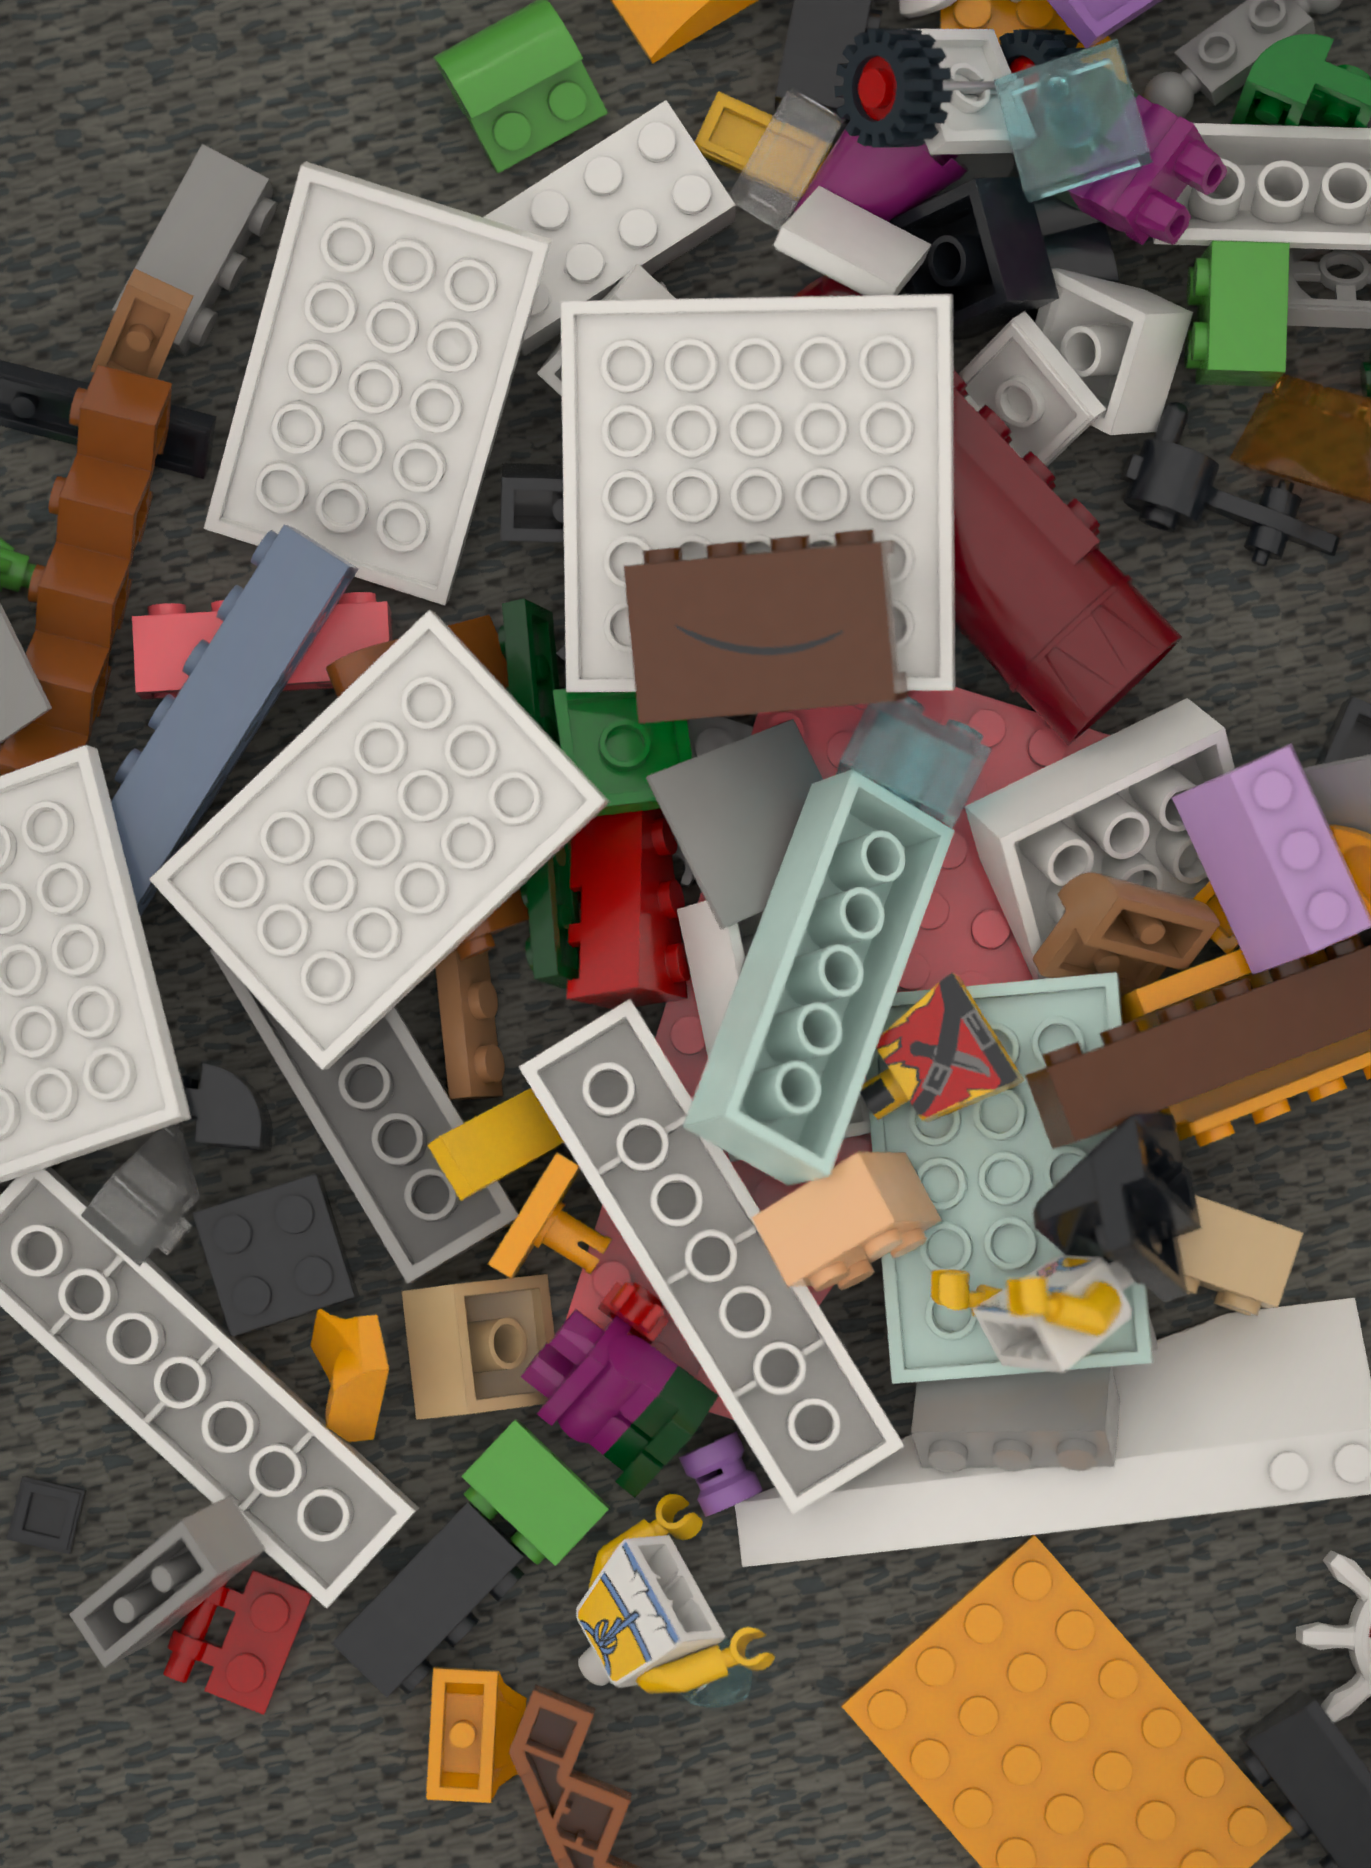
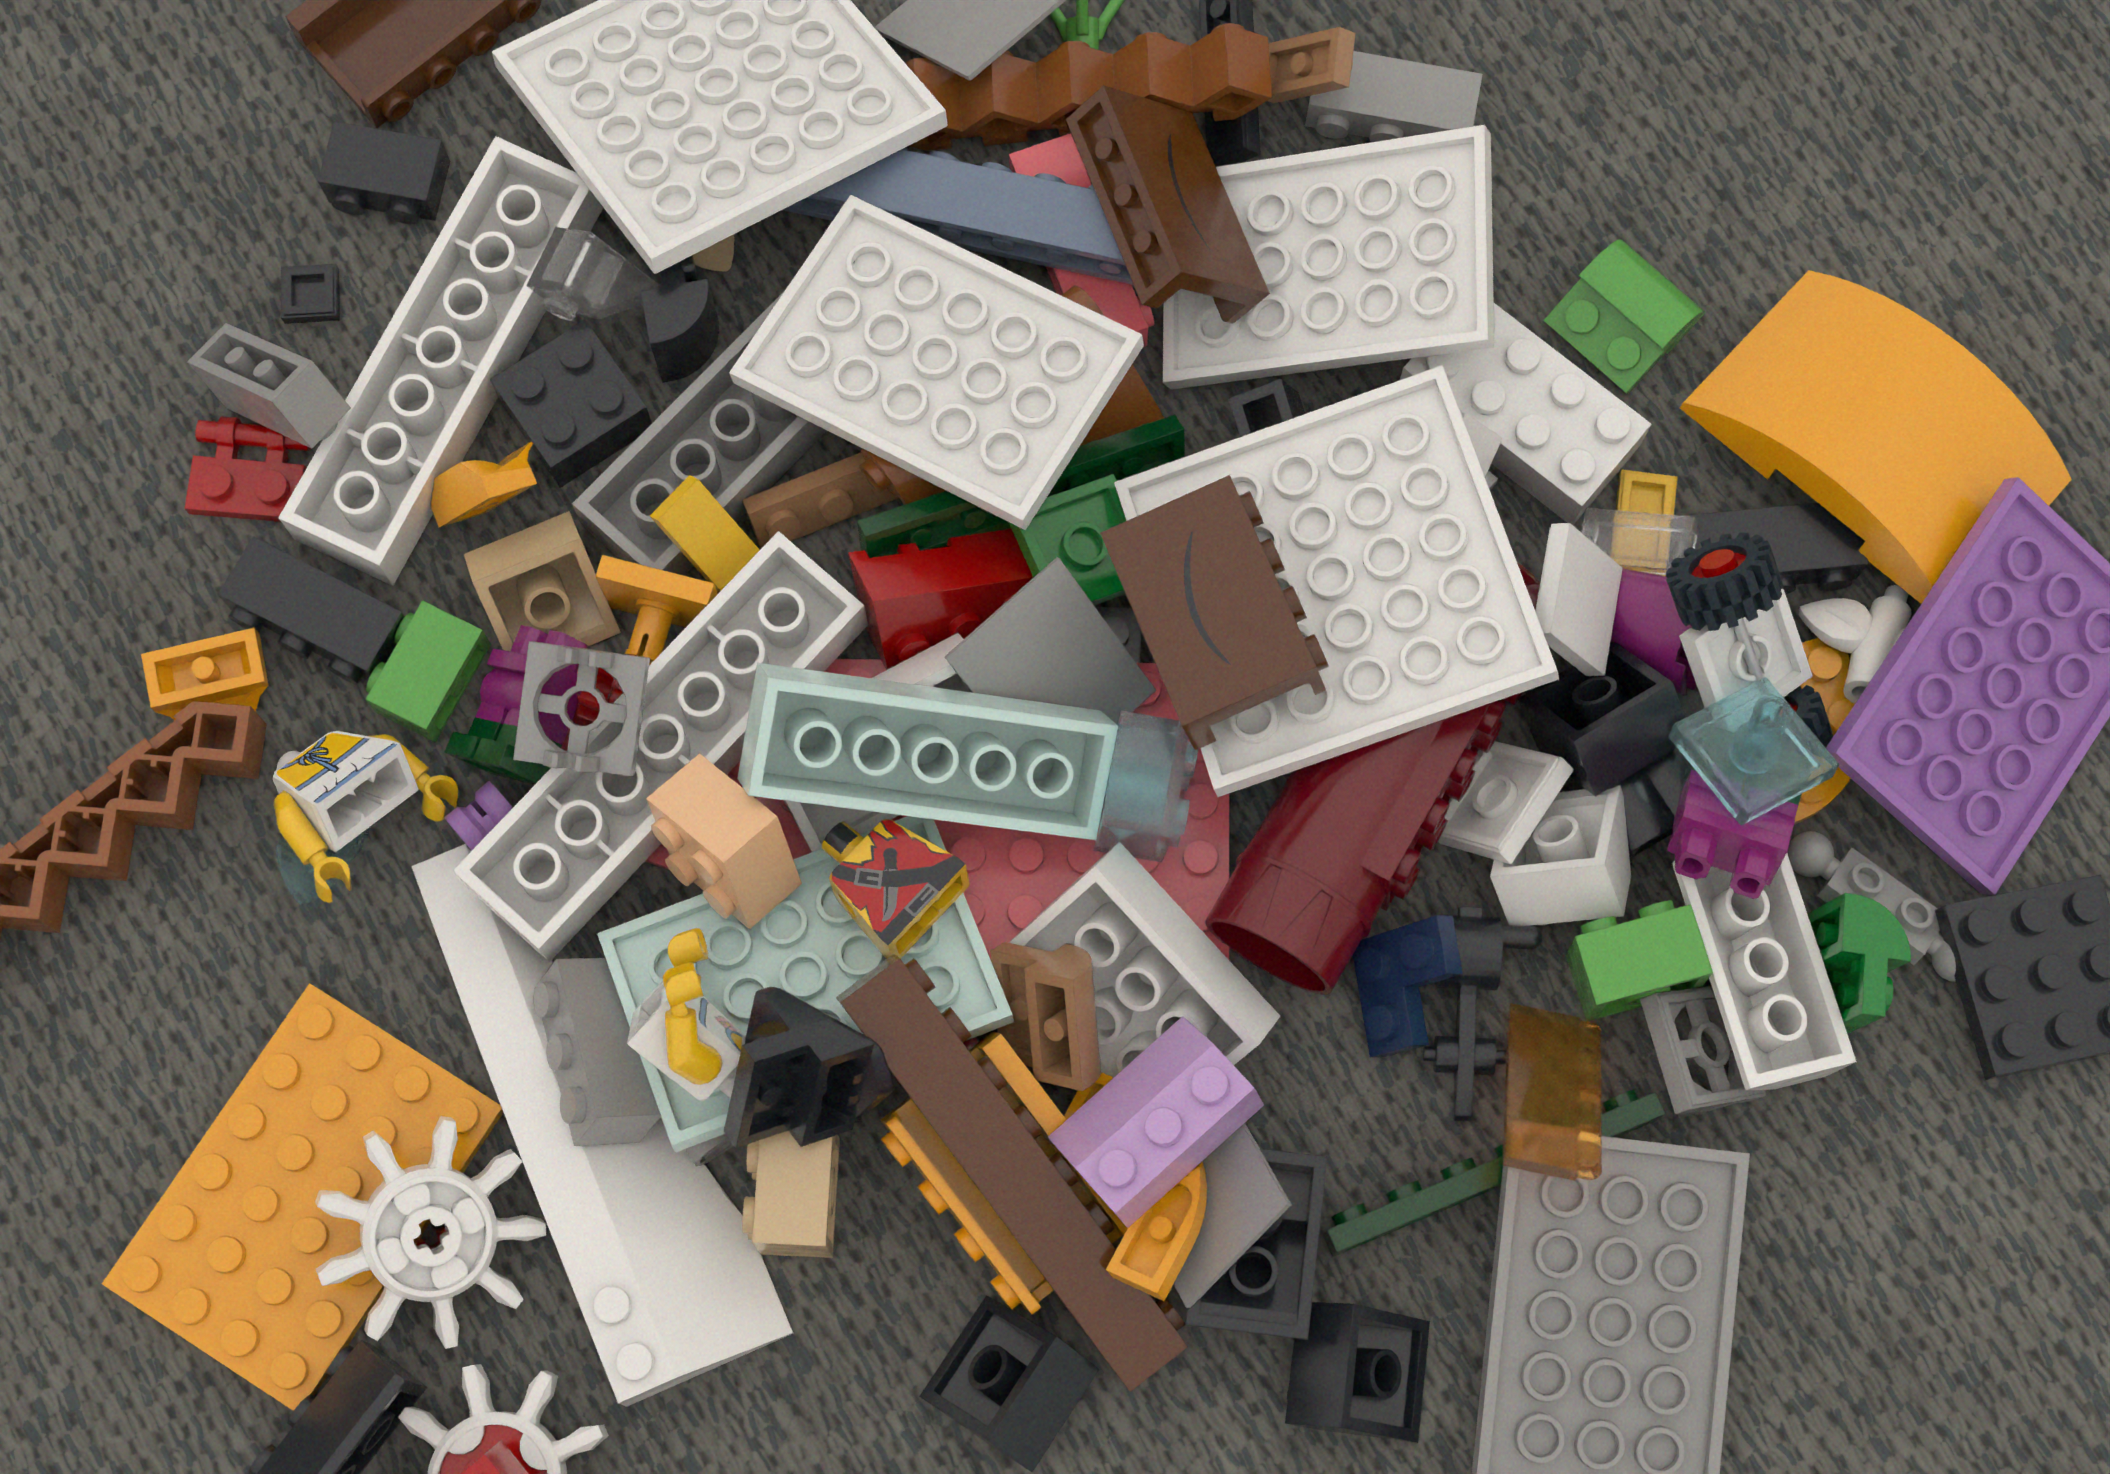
camera: 70 degrees right, 10 degrees down
(270, 537) = (1165, 202): none -> reddish brown panel
(622, 1309) = (531, 740): none -> light grey piece
(1118, 1650) = (392, 1222): none -> white gear
(1174, 570) = (1389, 978): none -> dark blue plate

